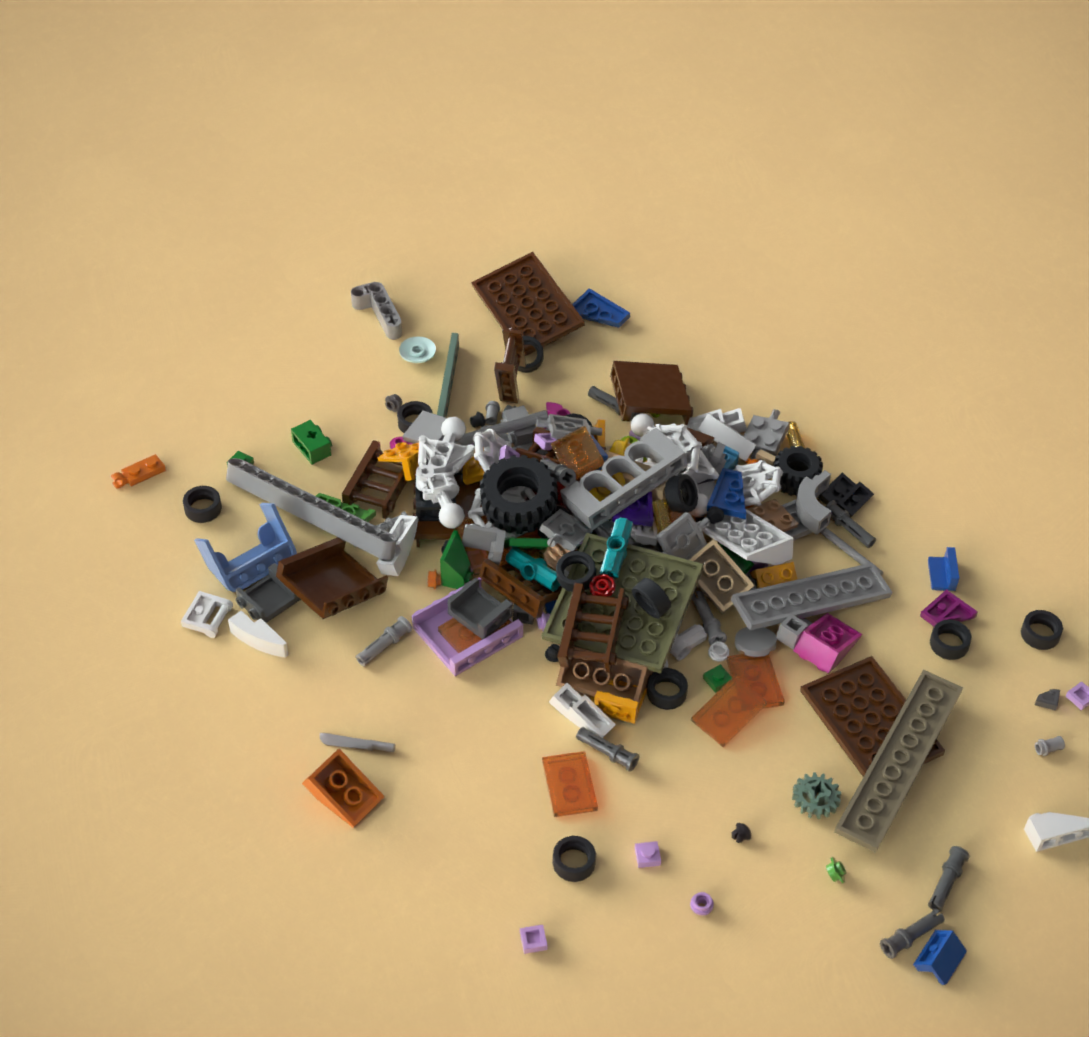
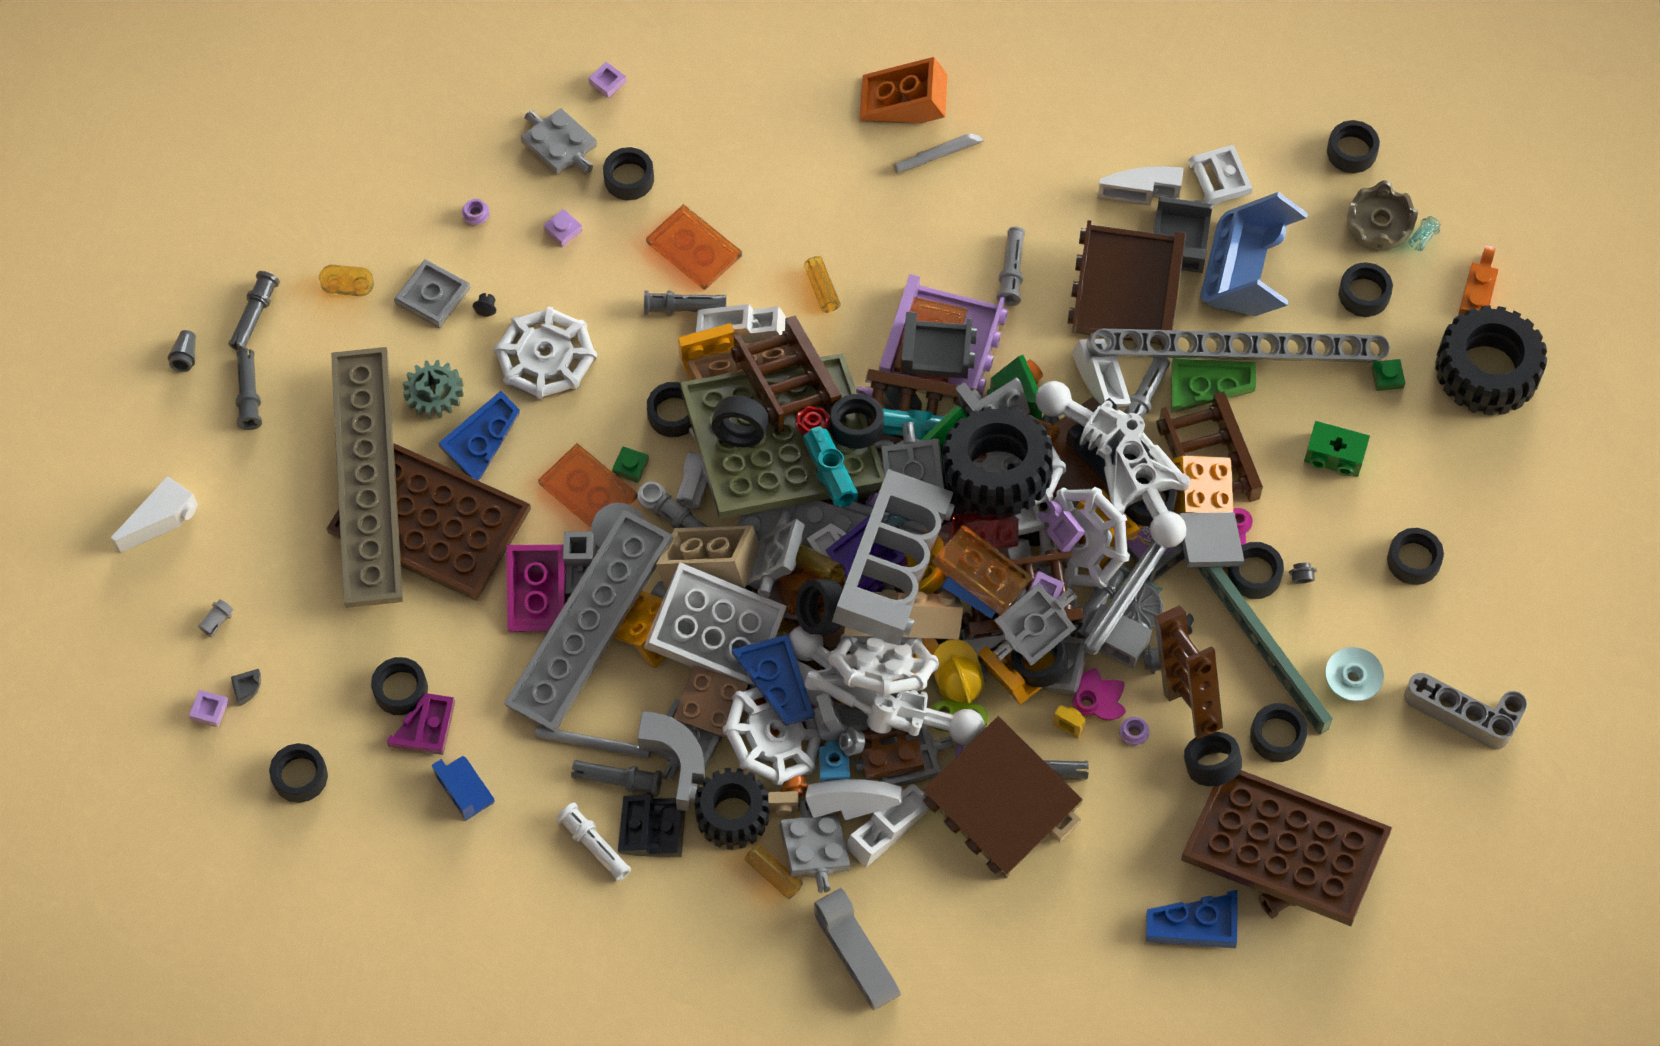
camera: 145 degrees right, 15 degrees up
(117, 590) = (1351, 163): none -> black tyre
(134, 512) = (1428, 228): none -> clear light blue pin
(150, 520) = (1386, 202): none -> dark tan plate
(190, 441) = (1497, 330): none -> black tyre
(330, 387) = (1421, 537): none -> black tyre
(480, 341) = (1269, 751): none -> black tyre
(509, 705) = (822, 284): none -> clear yellow piece
(550, 392) = (1134, 723): none -> lavender plate
(561, 472) = (975, 517): dark grey pin -> none
(580, 408) = (1069, 720): none -> yellow plate
(603, 918) = (558, 141): none -> light grey plate
(715, 515) = (769, 627): black piece -> none
(718, 786) = (546, 366): none -> white plate
(729, 711) = (588, 425): clear orange tile -> none
(772, 867) = (432, 293): none -> light grey tile
(779, 384) = (854, 949): none -> light grey beam
(806, 749) = (480, 436): none -> blue wing
(830, 911) = (347, 280): none -> clear yellow plate
(836, 870) = (364, 323): bright green plate -> none
(887, 510) = (585, 833): none -> white pin
(941, 955) = (214, 305): blue panel -> none
(982, 933) = (183, 352): none -> dark grey cone

